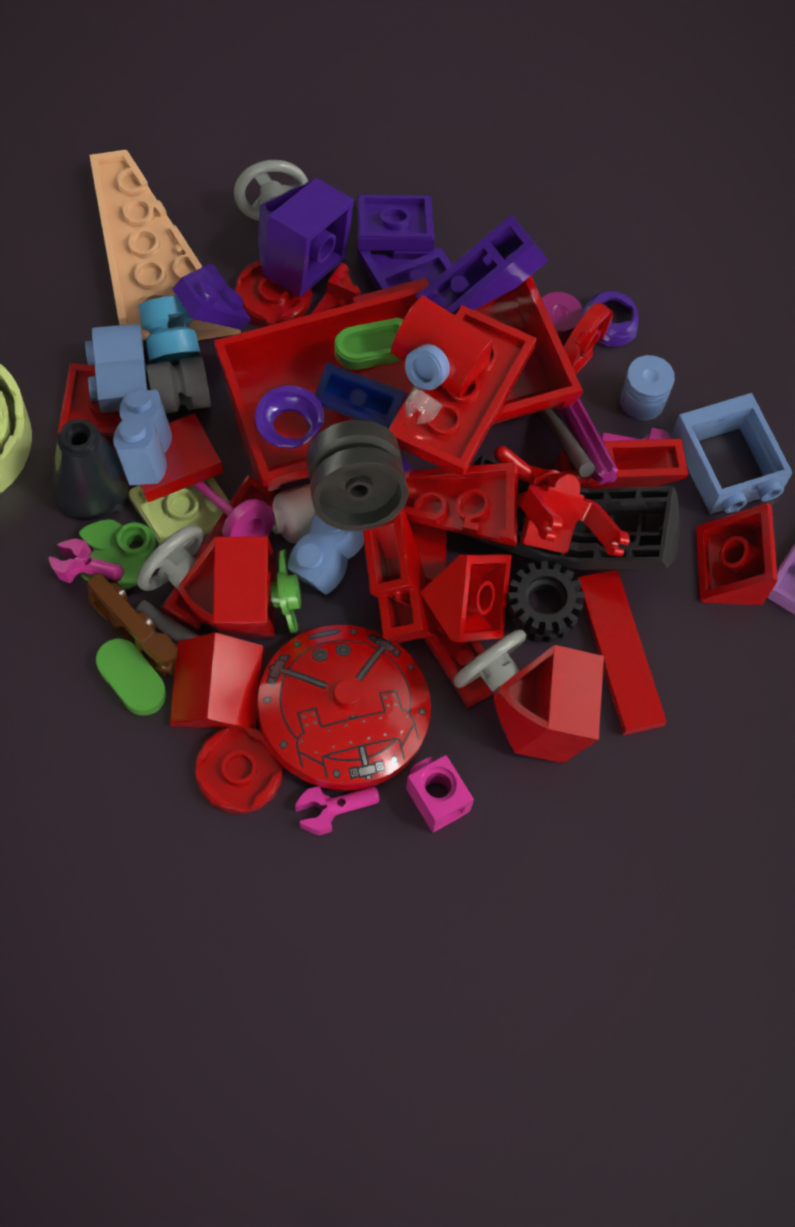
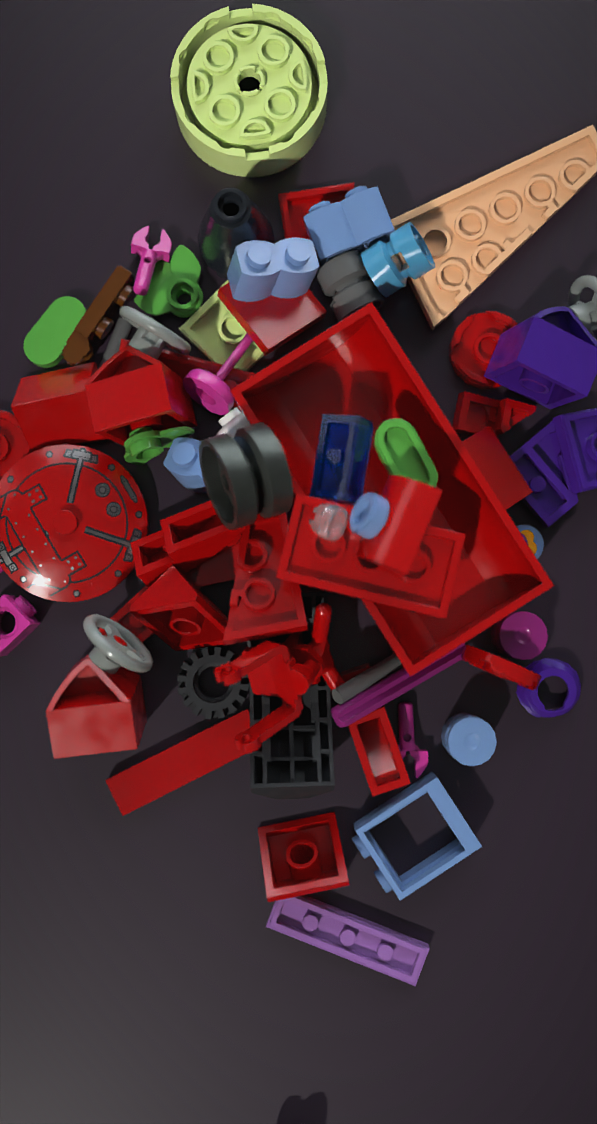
camera: 85 degrees right, 20 degrees up
(211, 299) = (441, 287): dark purple wing -> none
(288, 399) = (300, 374): dark purple piece -> none
(488, 269) = (512, 549): dark purple slope -> none

